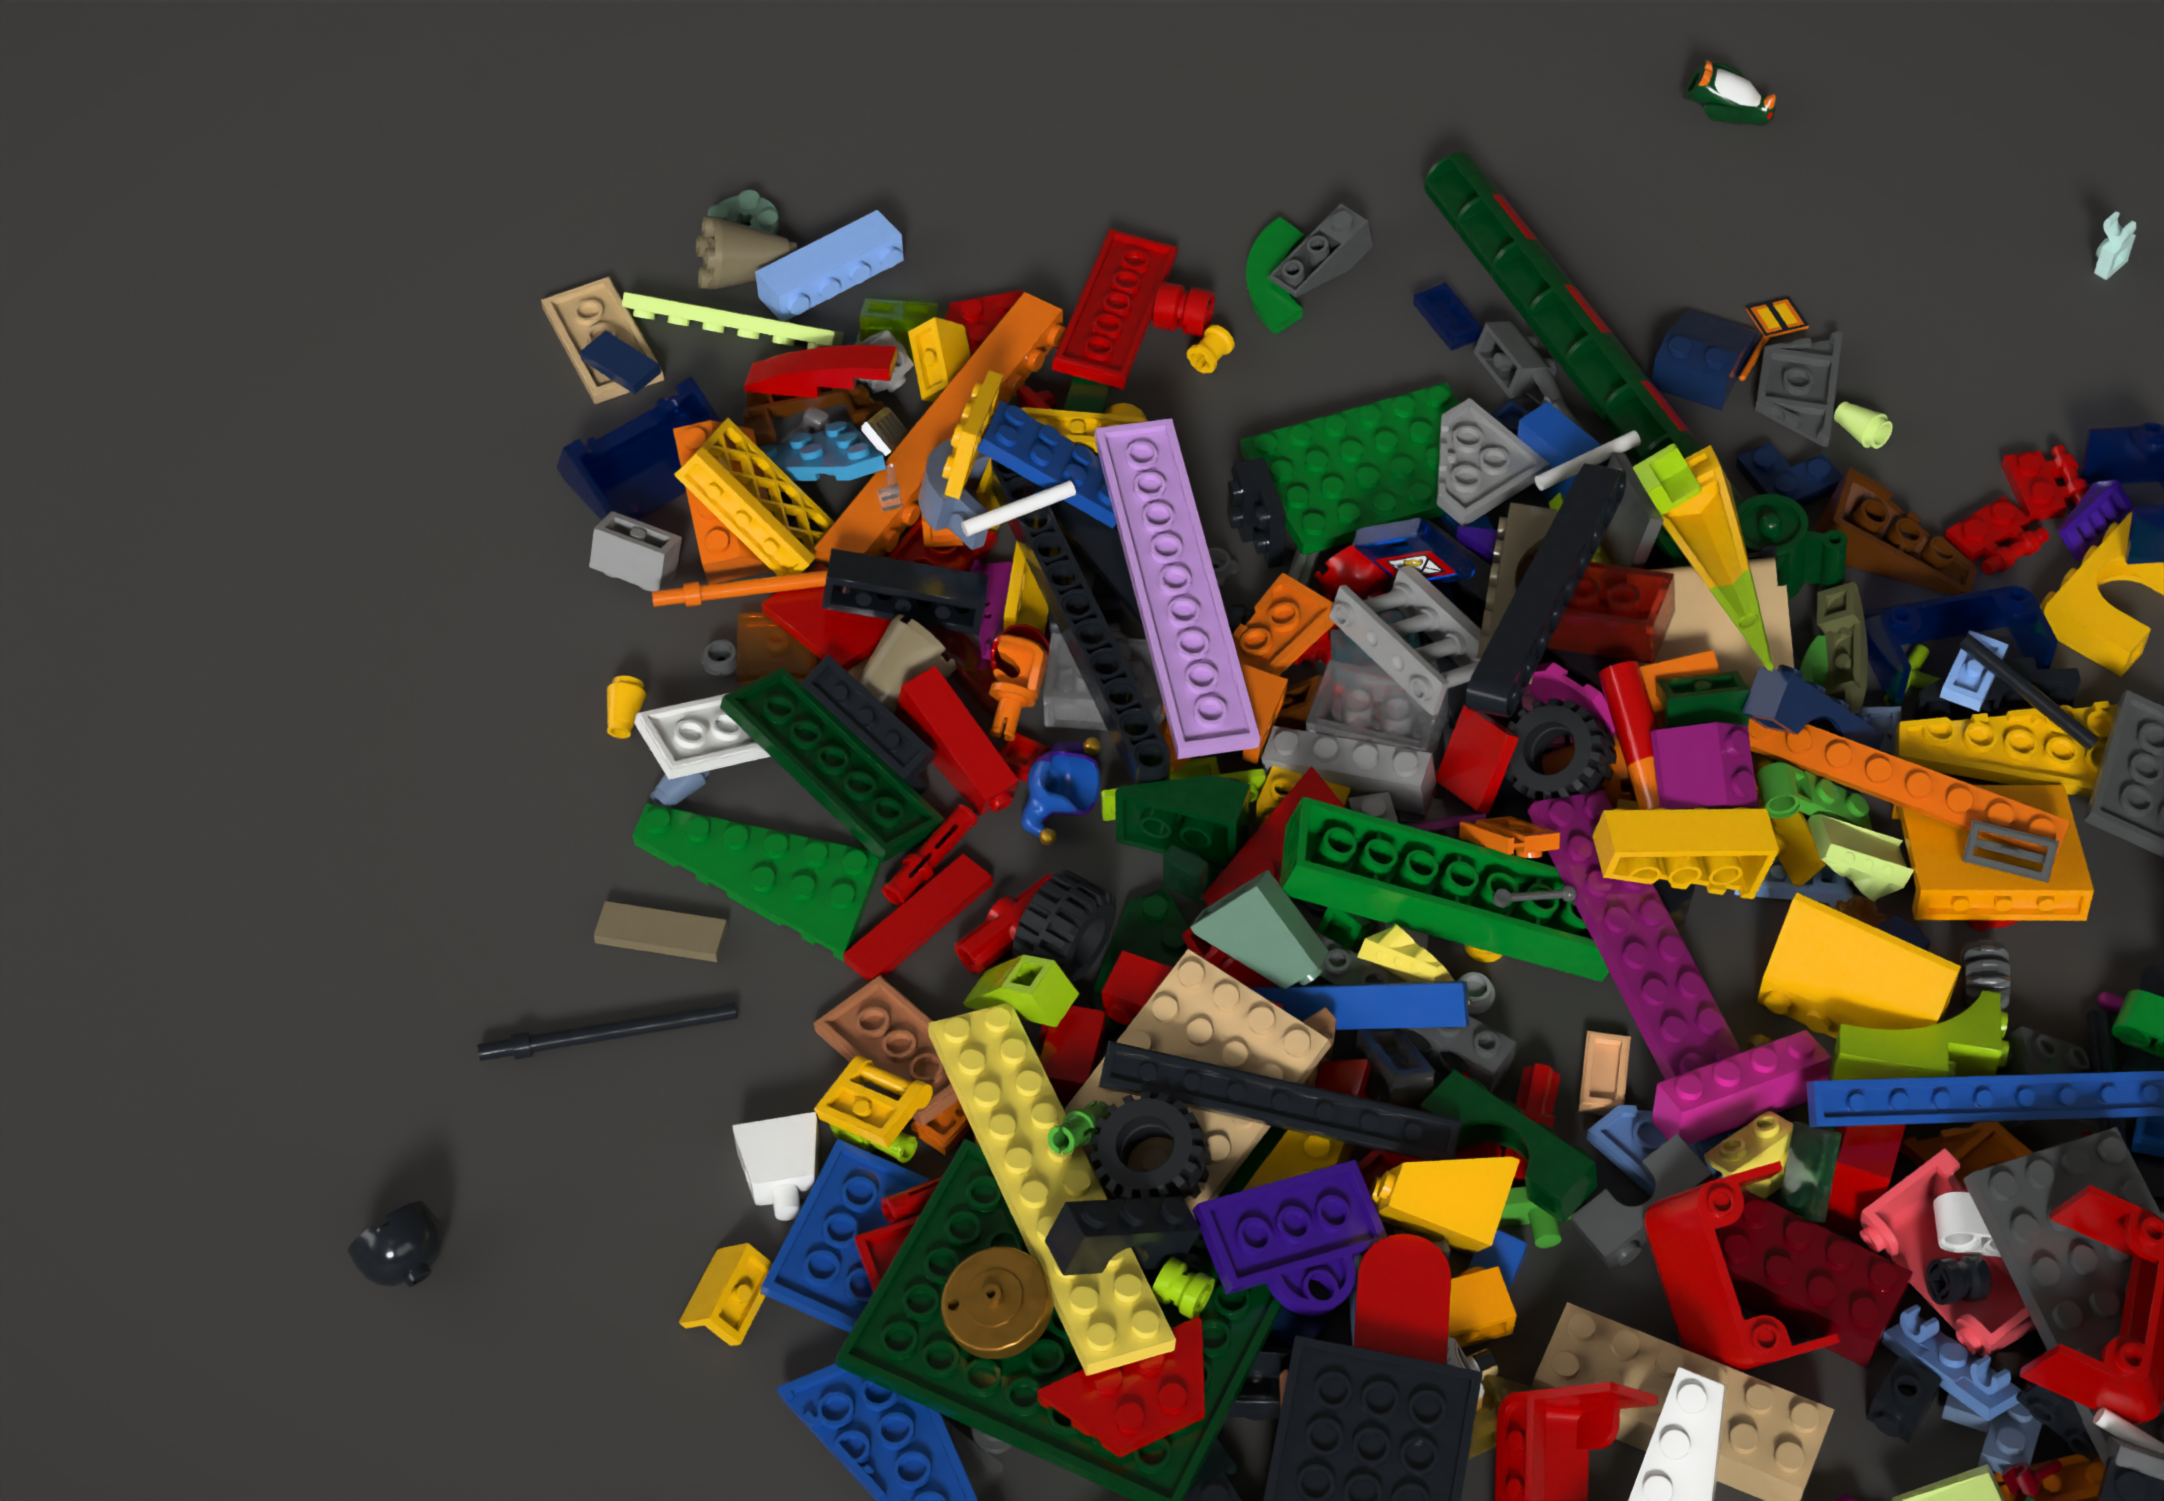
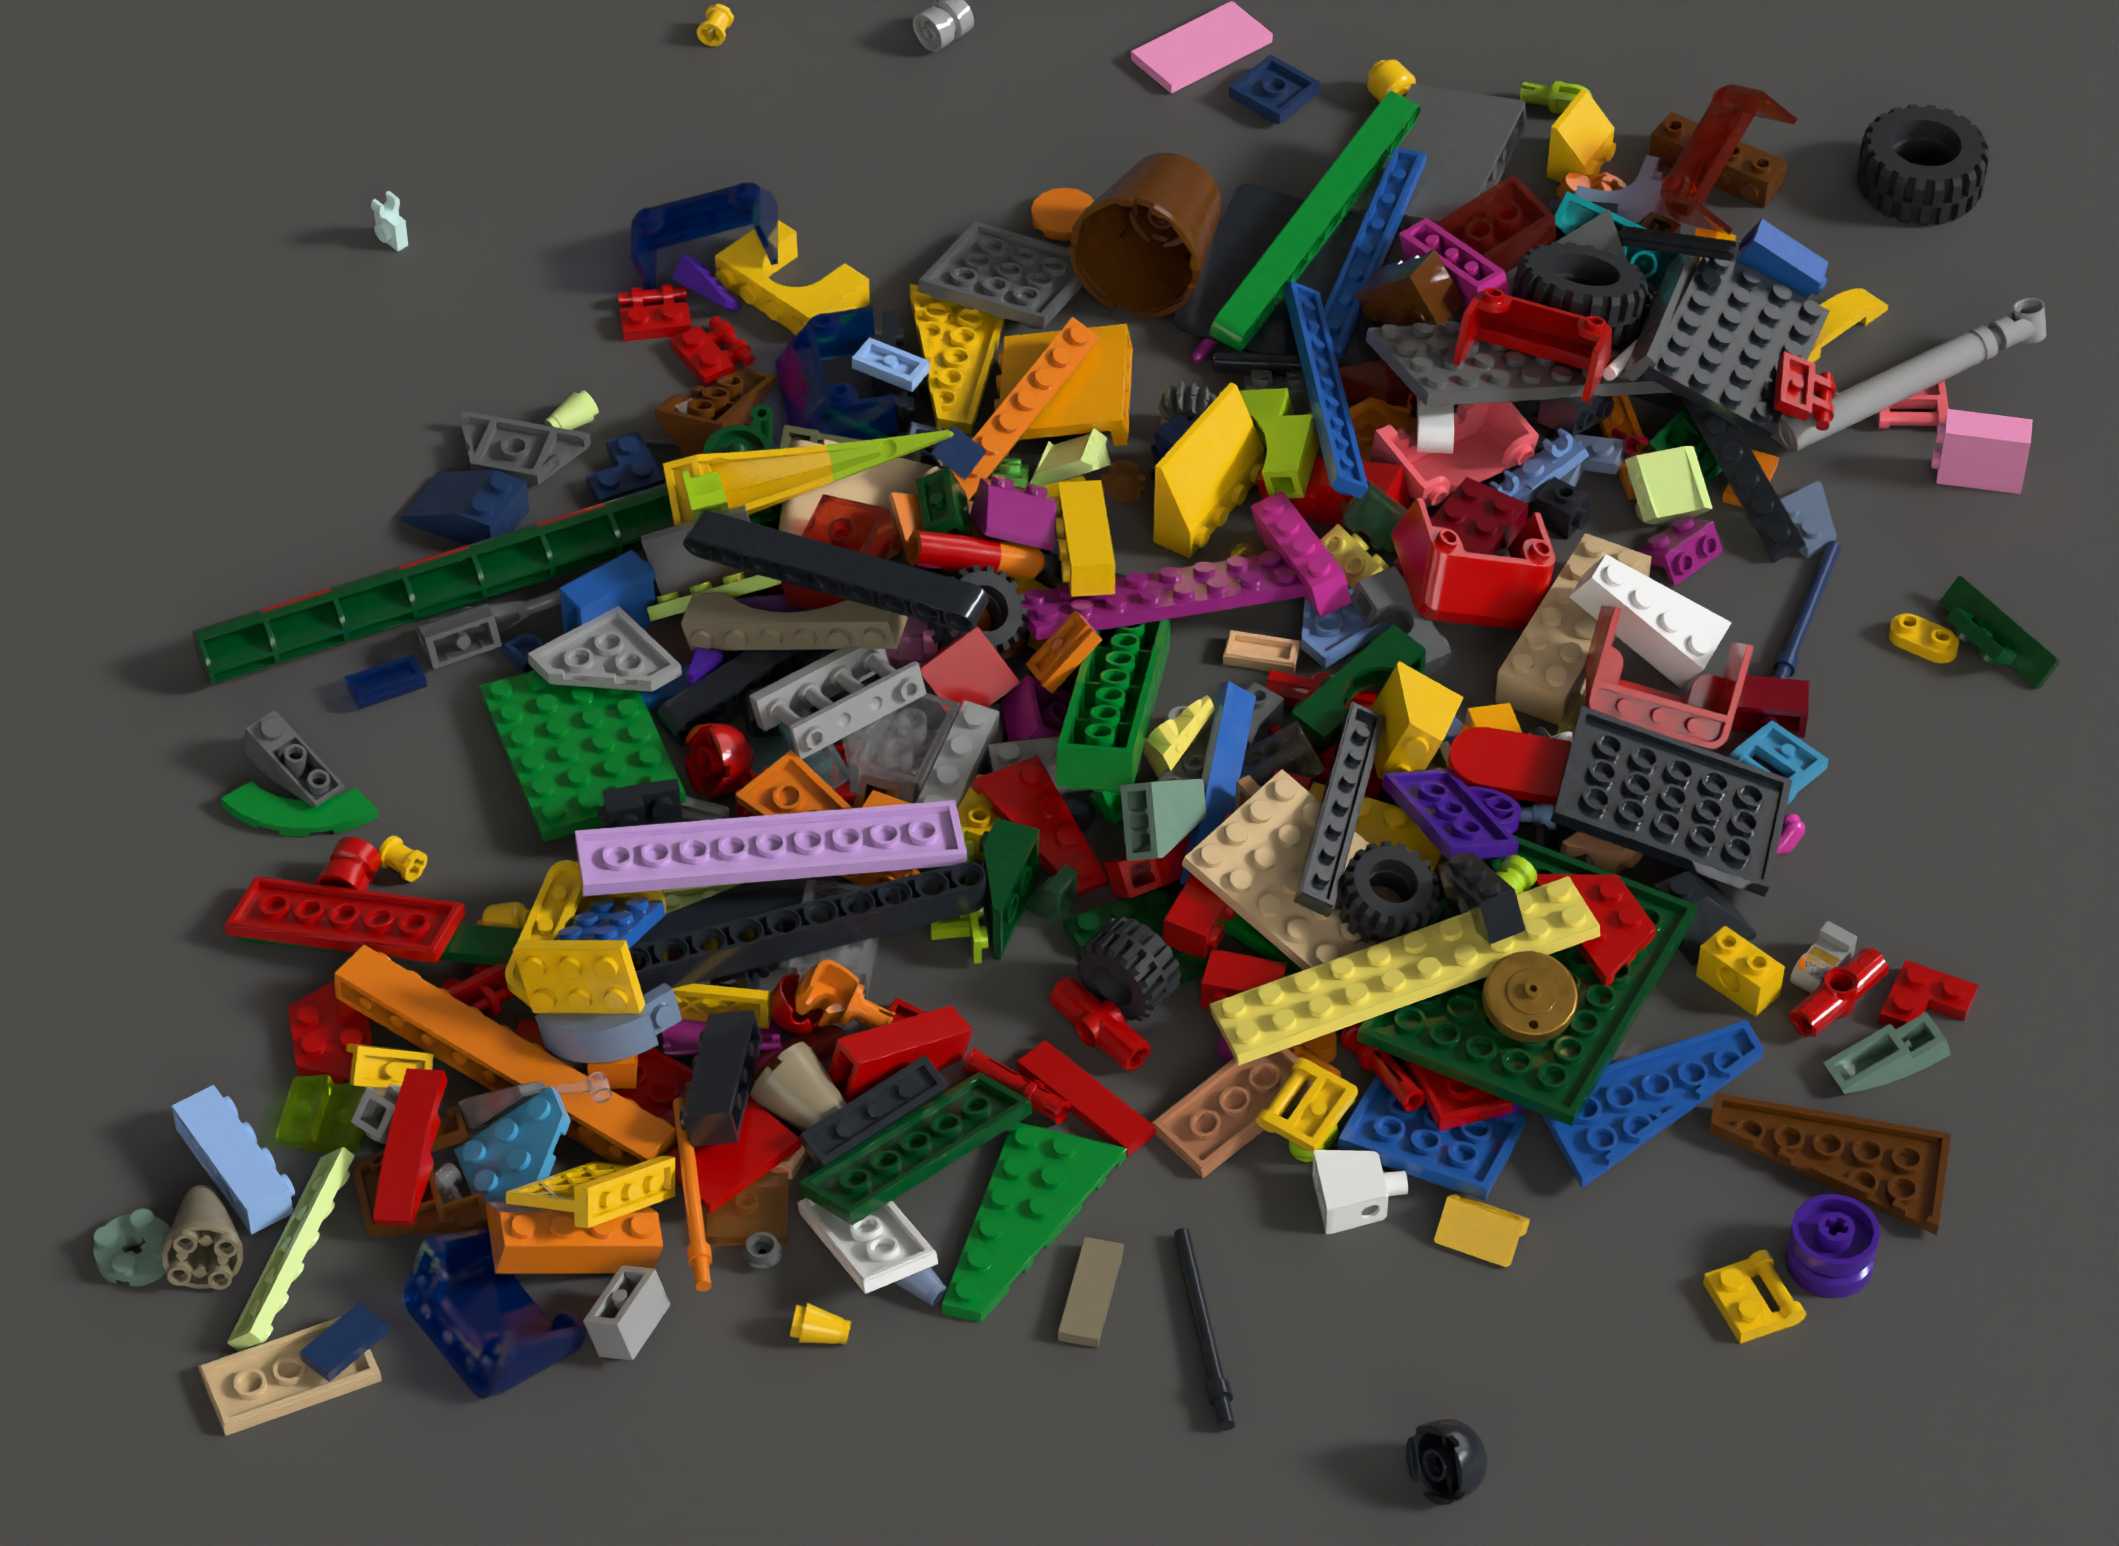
camera: 90 degrees left, 5 degrees down
(1018, 508) = (665, 957): white bar -> none
(1030, 985) = (1188, 1009): lime slope -> none
(1062, 785) = (945, 984): blue piece -> none
(1077, 1127) = (1363, 935): bright green pin -> none
(1425, 551) = (740, 687): clear blue container -> none
(1503, 897) = (1135, 655): dark grey hinge -> none
(1593, 457) = (643, 563): white bar -> none
(1729, 95) = (128, 450): dark green animal -> none
(1772, 319) = (420, 460): piece -> none
(1950, 1279) = (1473, 453): black wheel -> none
(2028, 692) = (918, 334): black bar -> none
(2047, 860) = (1083, 374): dark grey tile -> none

